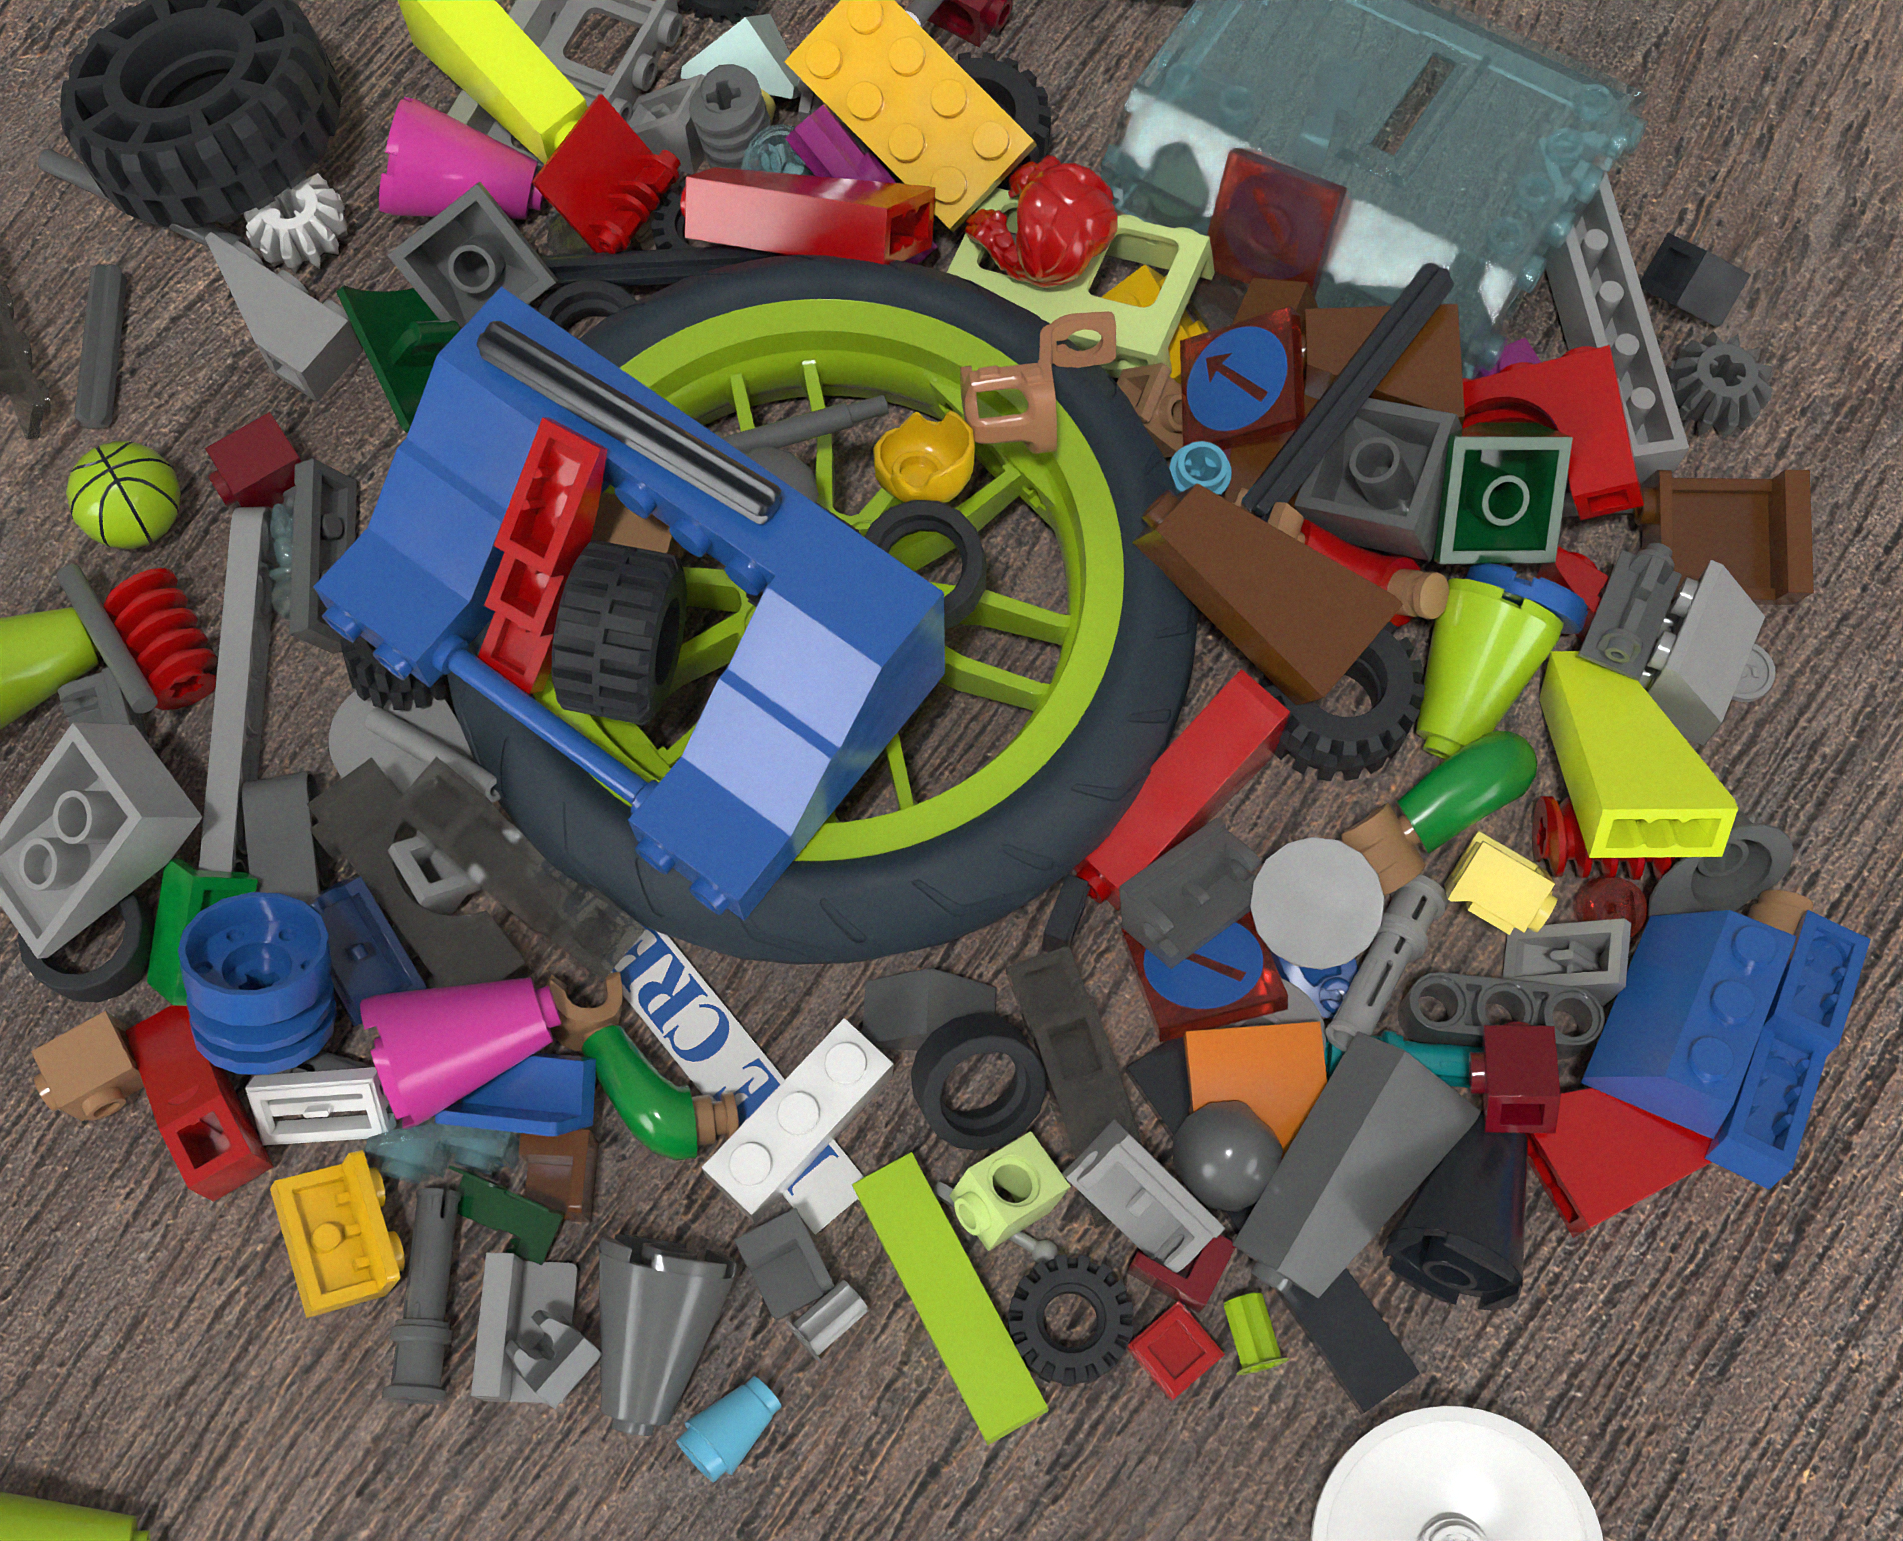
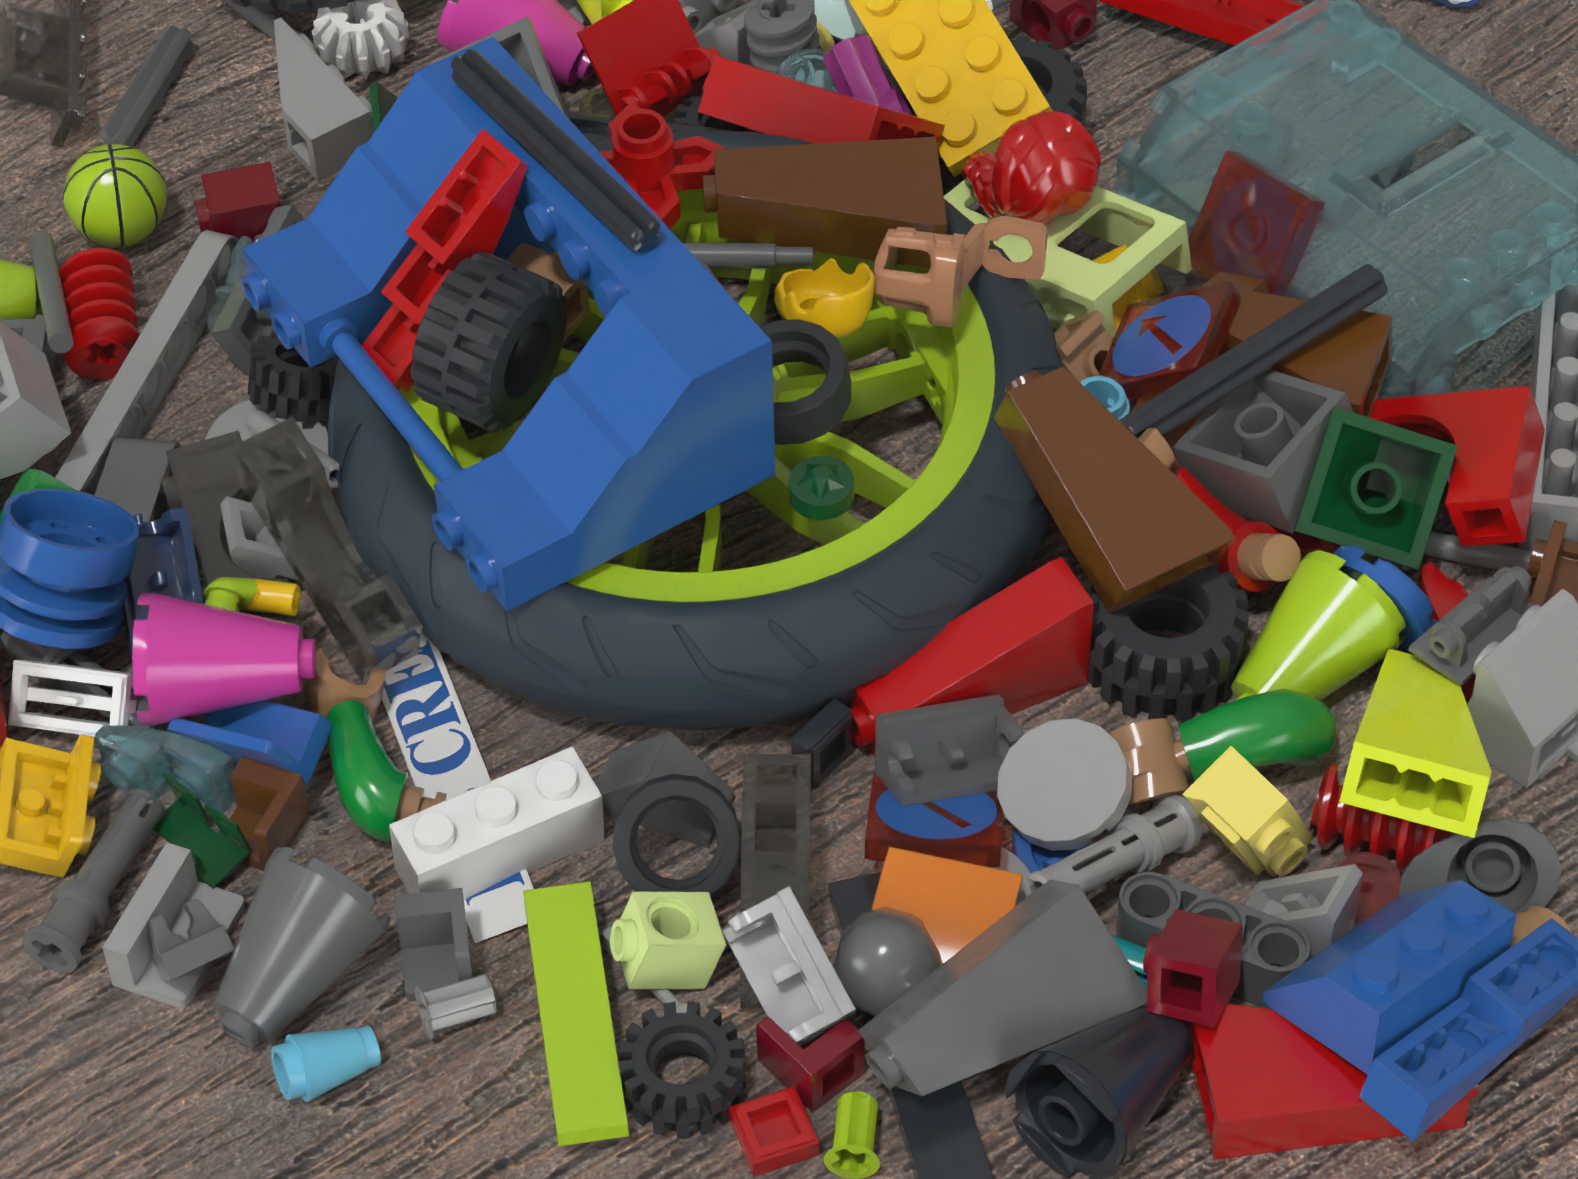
camera: 20 degrees right, 20 degrees down
(461, 946) = (254, 595): none -> arm
(687, 348) = (655, 163): none -> red plant
(886, 332) = (829, 195): none -> reddish brown slope
(996, 675) = (821, 488): none -> dark green tile

